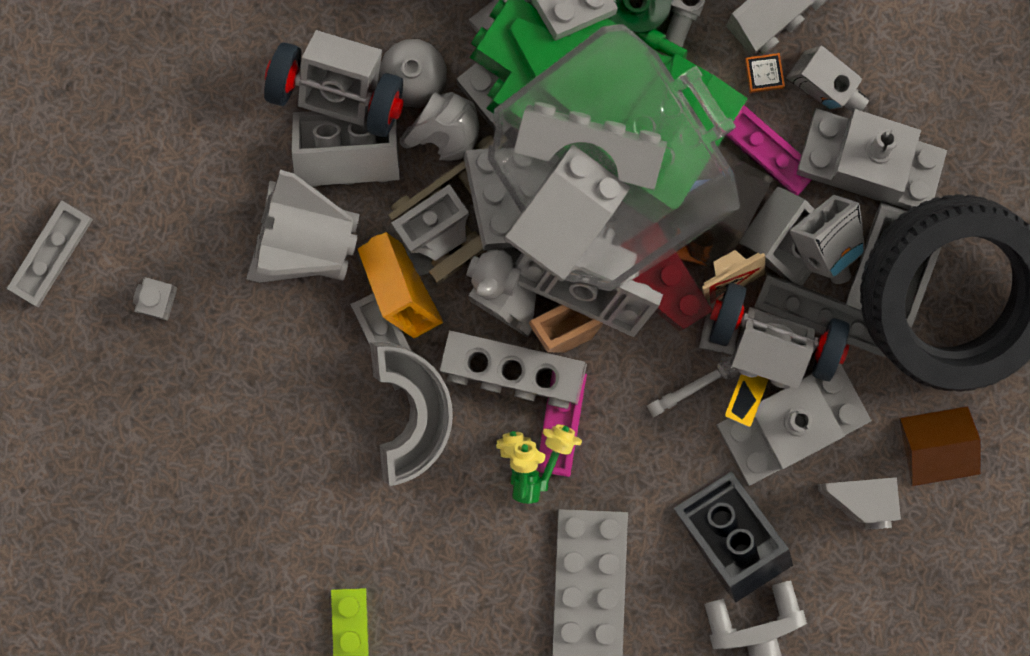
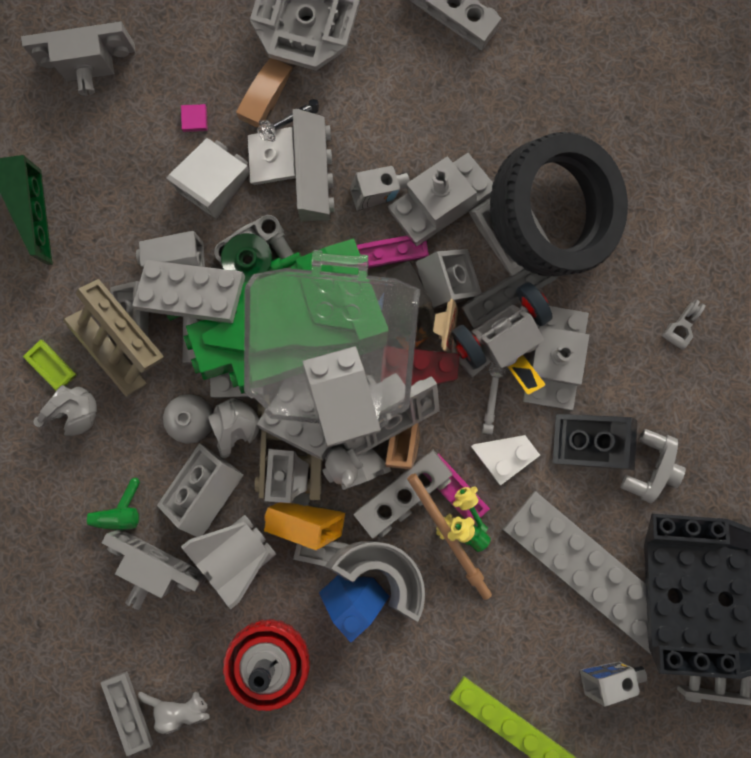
camera: 50 degrees left, 0 degrees up
(85, 304) = (172, 715): none -> light grey animal
(154, 298) = (201, 672): light grey brick -> none
(217, 362) = (266, 665): none -> red wheel
(223, 158) = (150, 568): none -> light grey brick
(243, 77) = (120, 517): none -> green piece
(336, 80) = (155, 468): brick -> none
(356, 403) = (353, 603): none -> blue slope
(484, 514) = (473, 575): none -> medium nougat bar
(547, 131) = (283, 370): light grey arch -> none
(641, 451) = (506, 456): none -> white wing
(764, 73) = (344, 220): tile -> none
(831, 238) = (469, 254): light grey torso -> none
(866, 501) = (634, 348): light grey slope -> none
(941, 445) = (631, 284): reddish brown slope -> none
(965, 534) = (692, 309): none -> light grey piece

